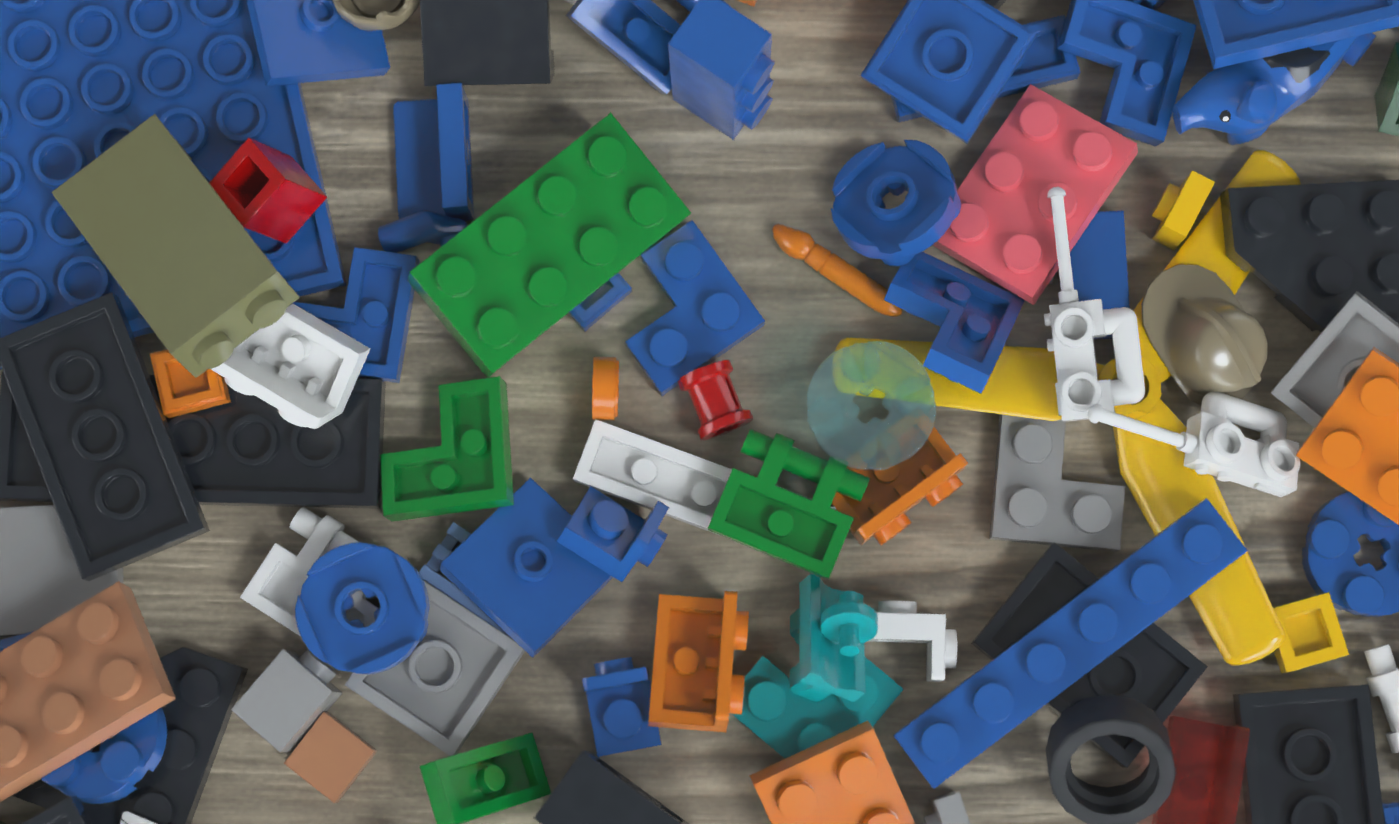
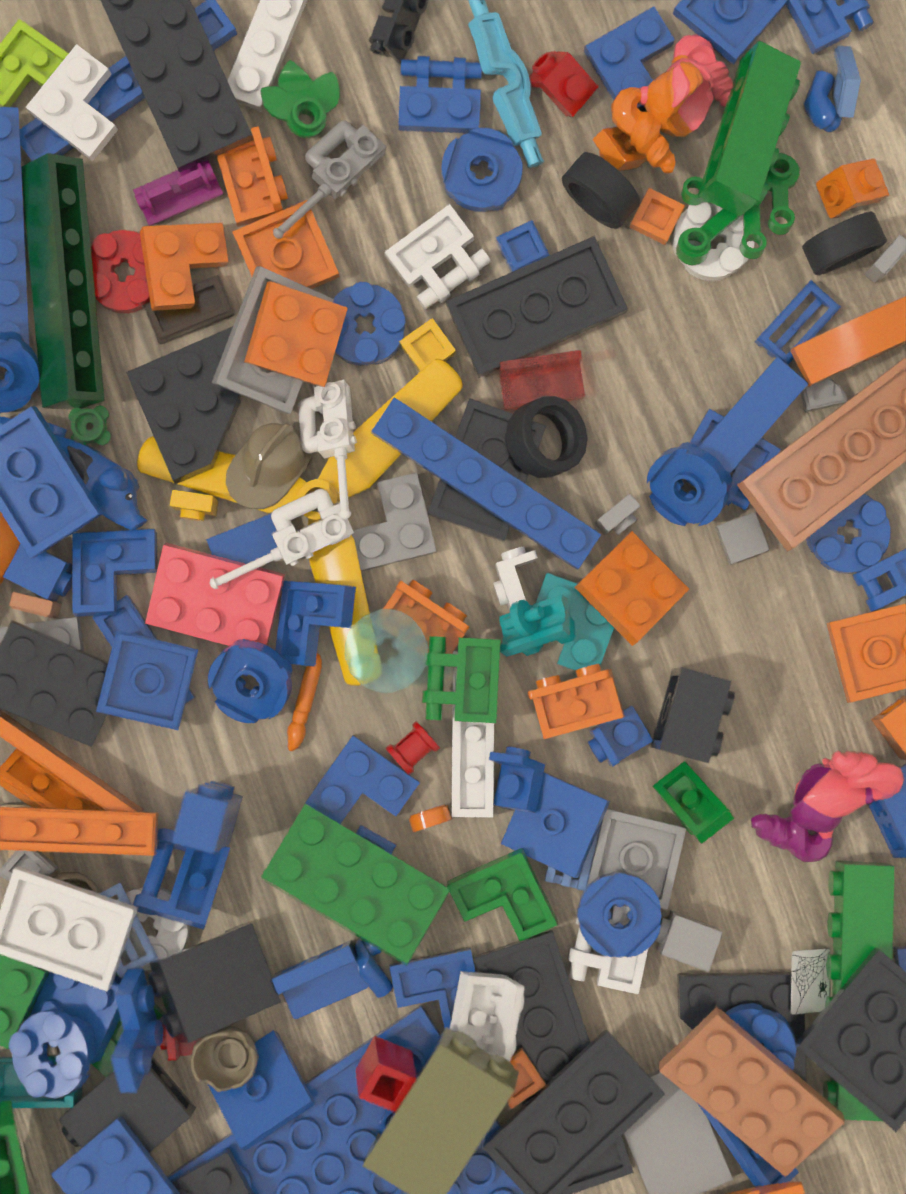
camera: 115 degrees left, 5 degrees up
(330, 757) = (711, 902): nougat tile -> none
(1360, 93) = (97, 416): none -> green plate

